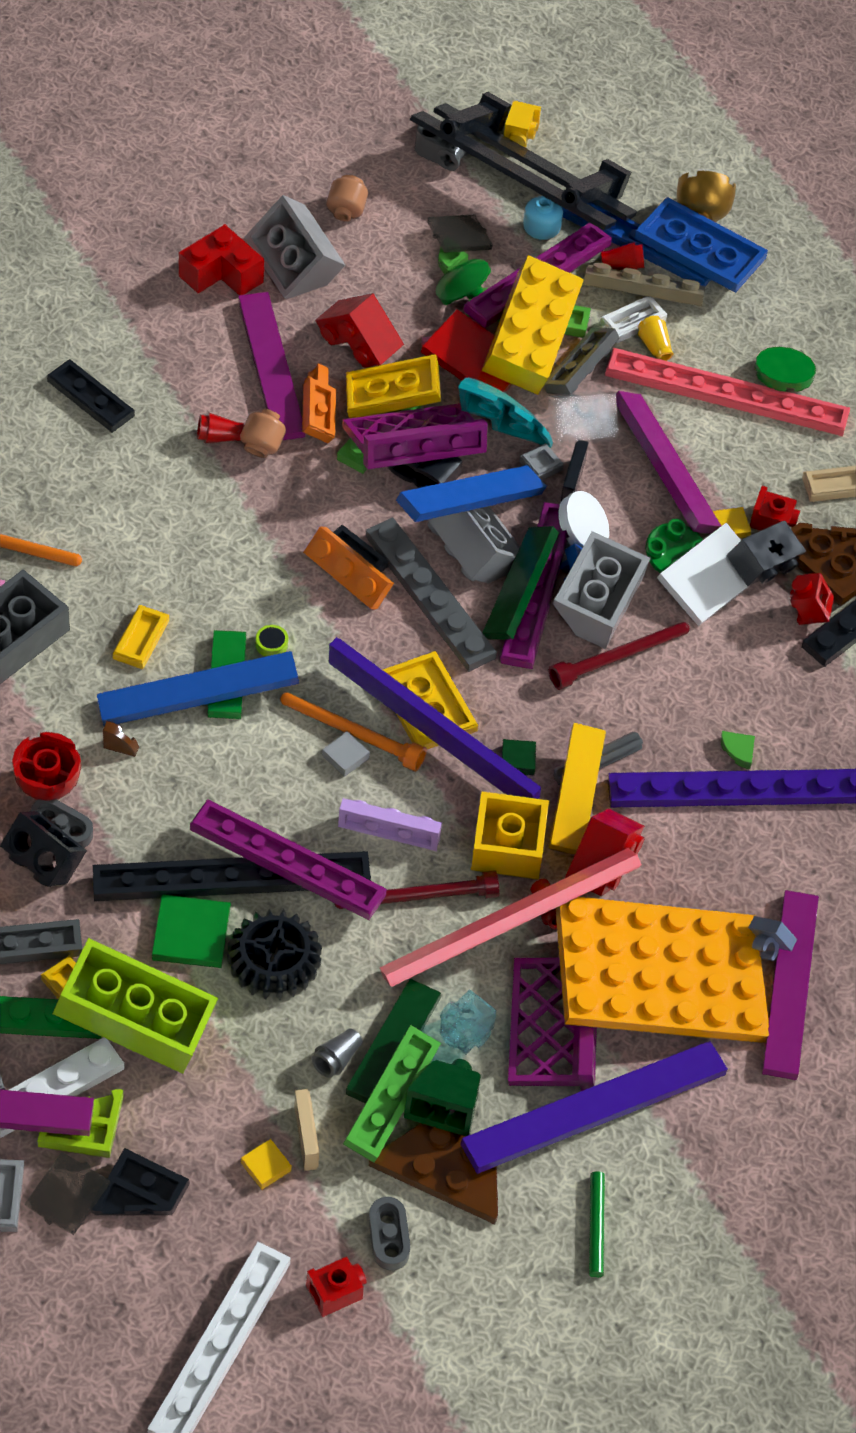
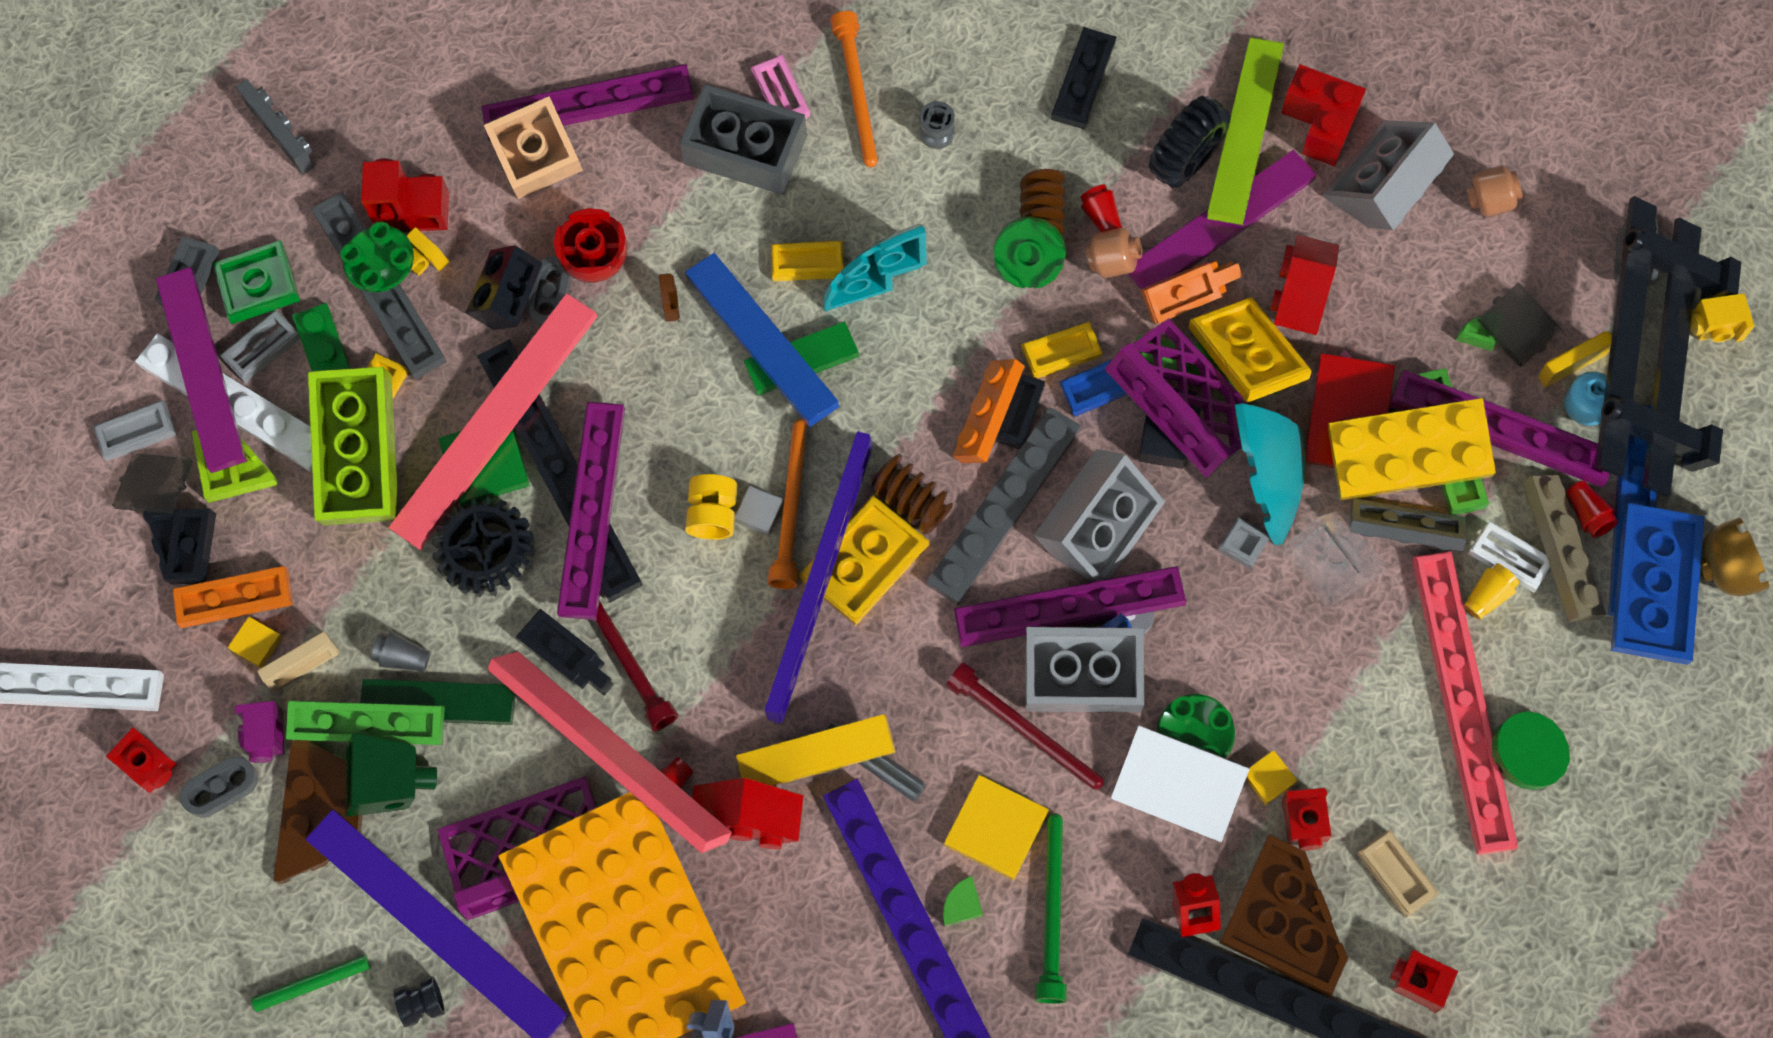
camera: 75 degrees right, 15 degrees up
(76, 499) = (933, 132): none -> dark grey wheel
(166, 900) = (493, 422): none -> coral tile
(183, 574) = (873, 269): none -> teal brick
(196, 466) = (1042, 196): none -> reddish brown piece
(200, 345) = (1189, 141): none -> black gear
(205, 315) = (1245, 131): none -> lime tile
(215, 1164) = (232, 597): none -> orange plate
(231, 483) = (1029, 252): none -> green tile
(271, 640) = (863, 381): tile -> none
(319, 504) = (1061, 350): none -> yellow tile
(328, 777) = (711, 504): none -> yellow wheel
(355, 1180) = (261, 730): none -> magenta brick
(365, 493) = (1091, 389): none -> blue tile
(389, 824) = (687, 587): lavender plate -> none
(392, 640) = (911, 495): none -> reddish brown piece
(400, 931) = (564, 652): none -> black hinge
(463, 281) = (1445, 356): green dish -> none
(467, 1022) = (476, 760): clear light blue brick -> none
(470, 493) = (1127, 484): blue tile -> none
(506, 214) = (1575, 359): none -> yellow tile
(510, 835) = (719, 709): yellow brick -> none
(520, 583) = (1051, 586): dark green tile -> none
(520, 755) = (837, 679): dark green tile -> none
(575, 468) = (1241, 582): black tile -> none
(580, 515) = (1171, 618): white tile -> none
(652, 1144) = (414, 1002): none -> black wheel
(667, 463) = (1311, 673): magenta tile -> none
(689, 703) = (996, 827): none -> yellow tile
(766, 554) = (1251, 837): black brick -> none
(828, 716) = (1050, 986): none -> green piece

